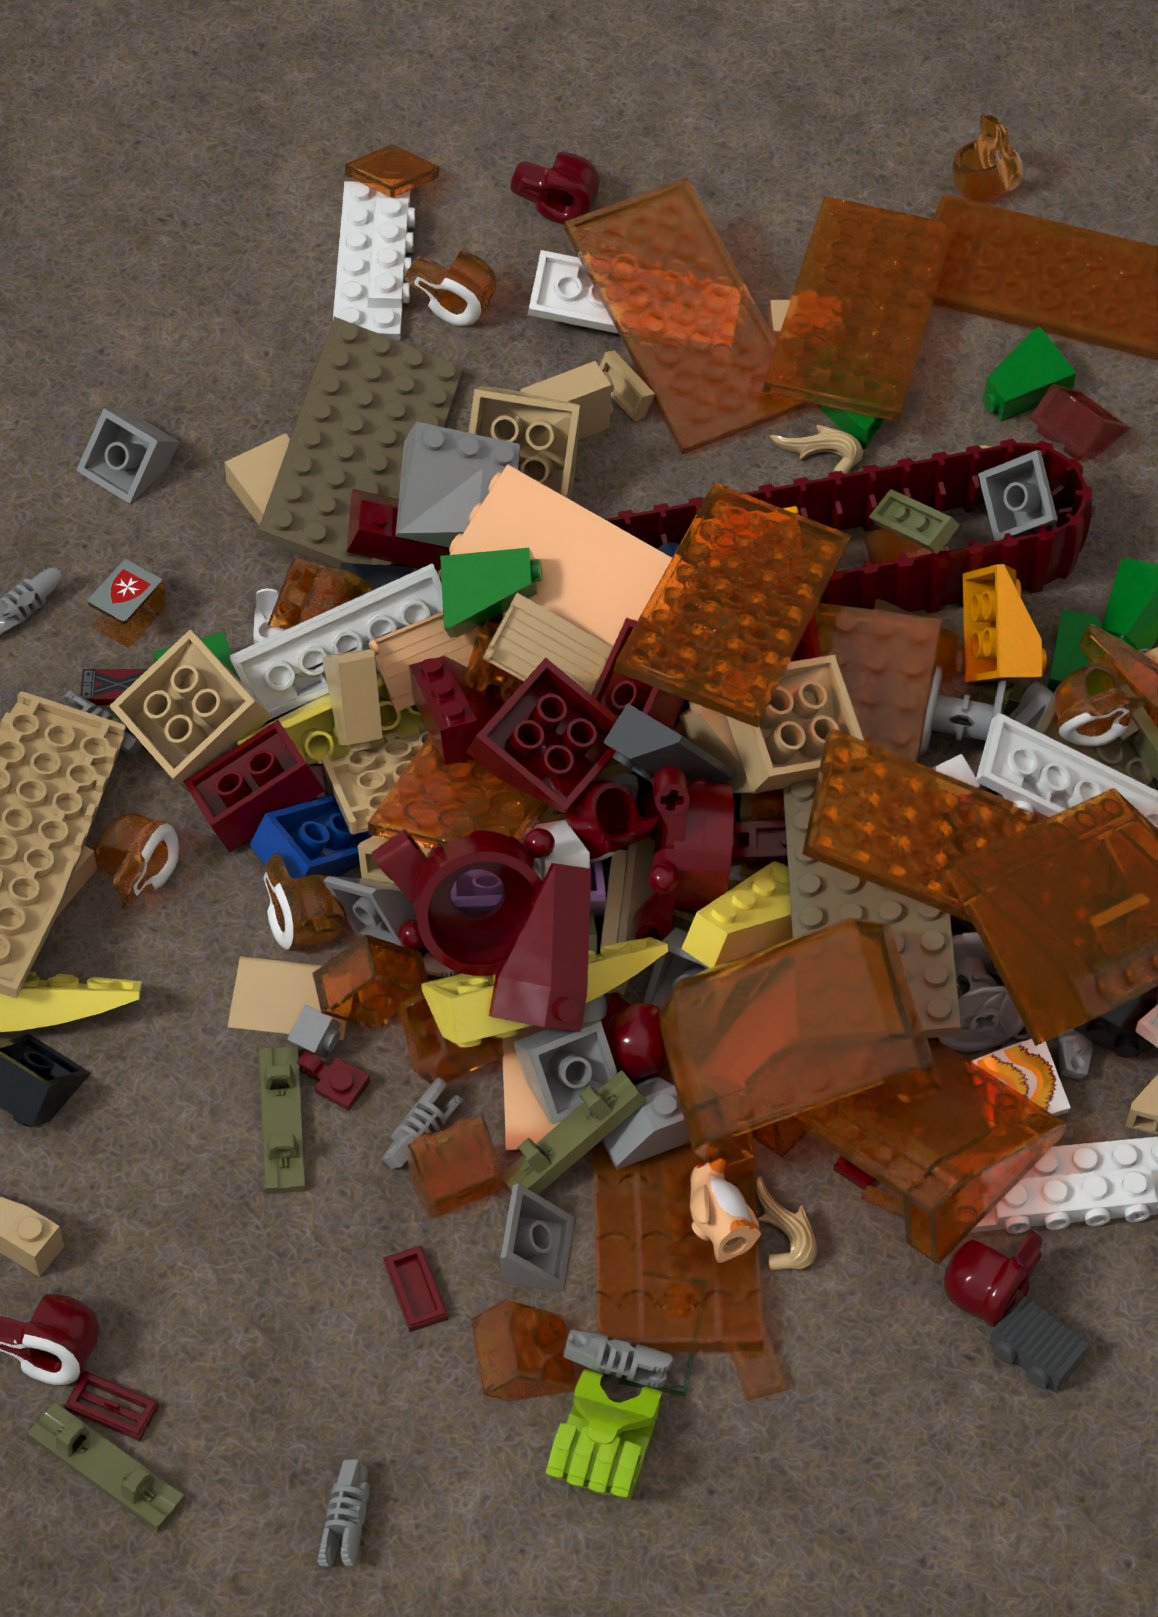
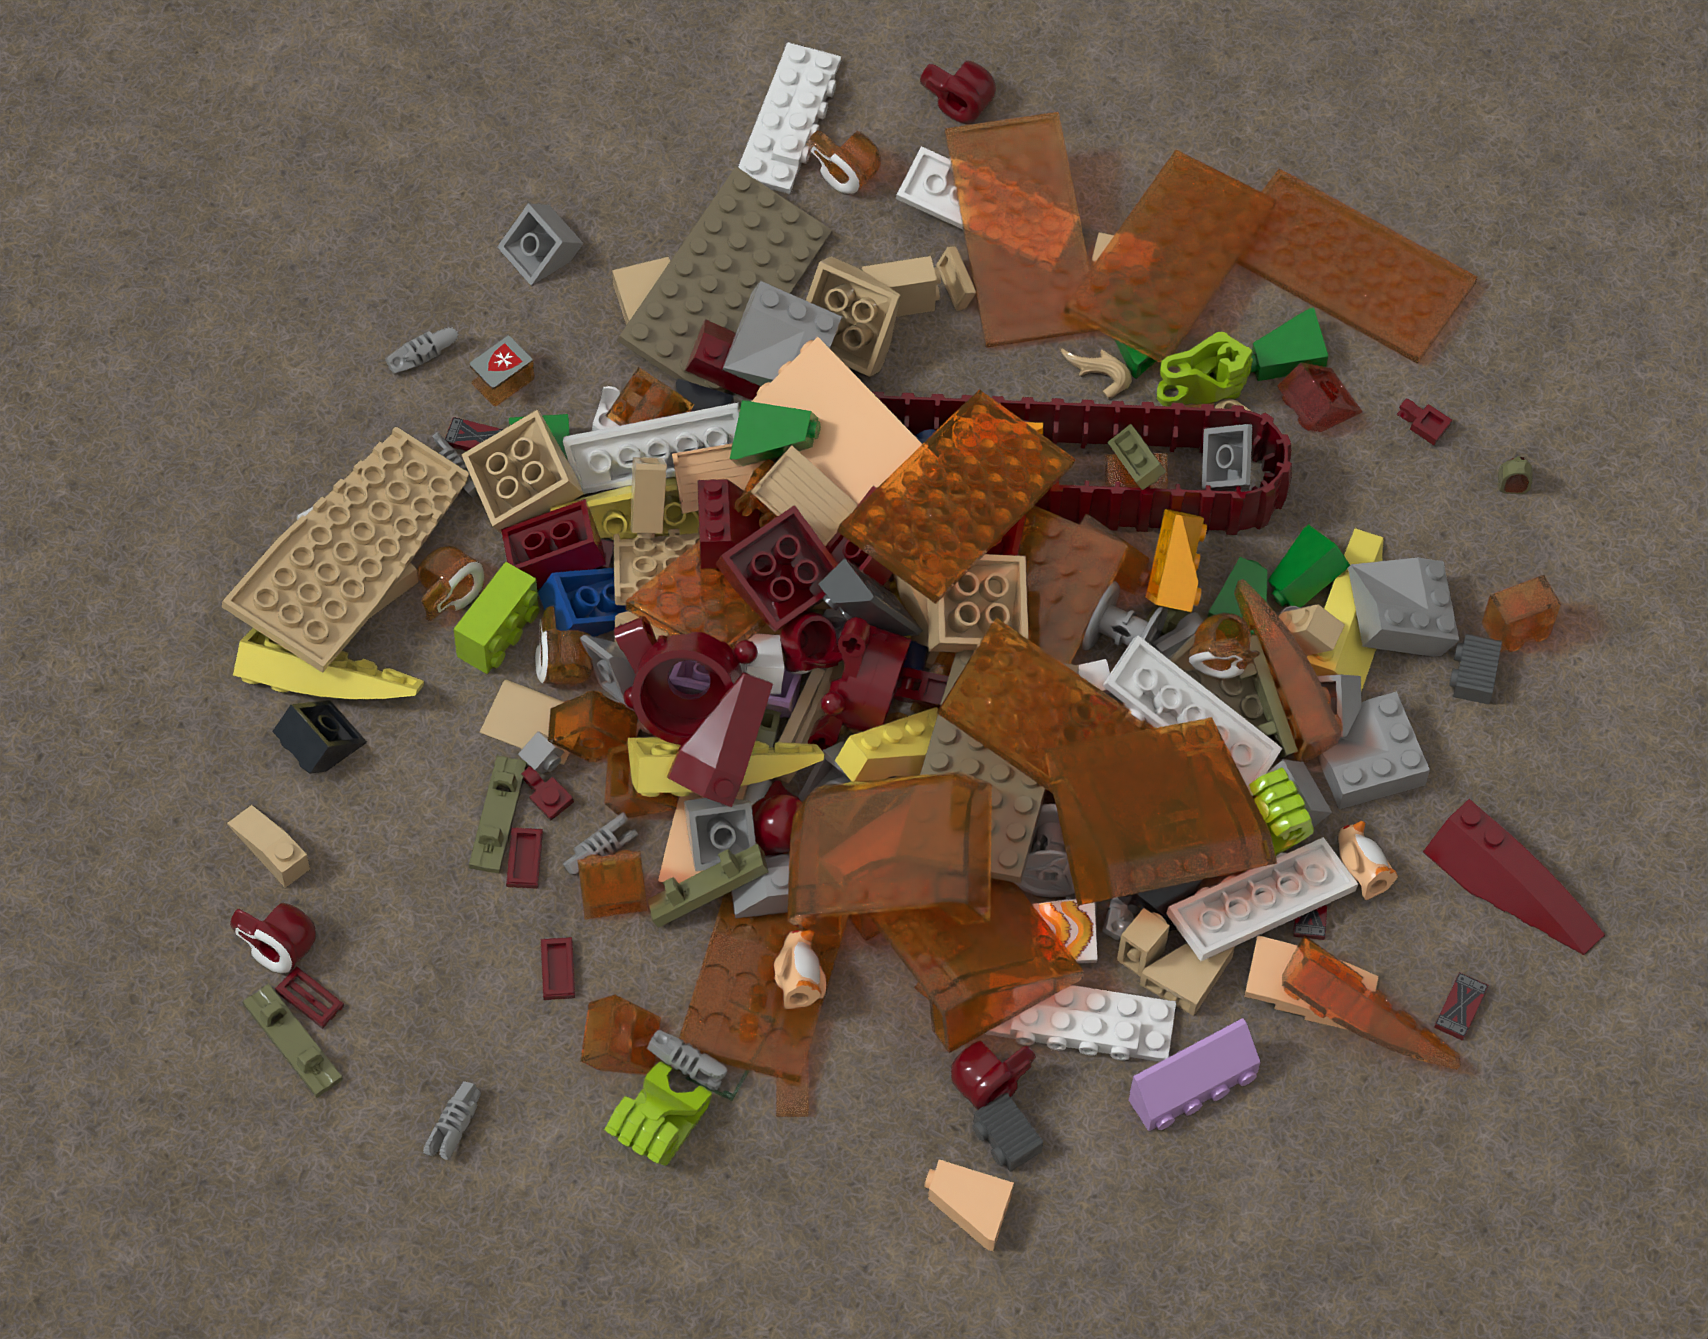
camera: 15 degrees right, 5 degrees up
(211, 885) = (497, 618): none -> lime brick
(331, 1163) = (524, 858): none -> dark red tile
(392, 170) = (828, 42): clear orange tile -> none
(535, 1241) = (656, 956): light grey slope -> none
(794, 1225) = (856, 996): tan piece -> none
(950, 417) = (1216, 354): none -> lime piece
(977, 166) = (1322, 152): clear orange piece -> none
(1025, 1440) = (970, 1199): none -> light nougat slope
(1119, 1072) = (1143, 941): none -> tan brick

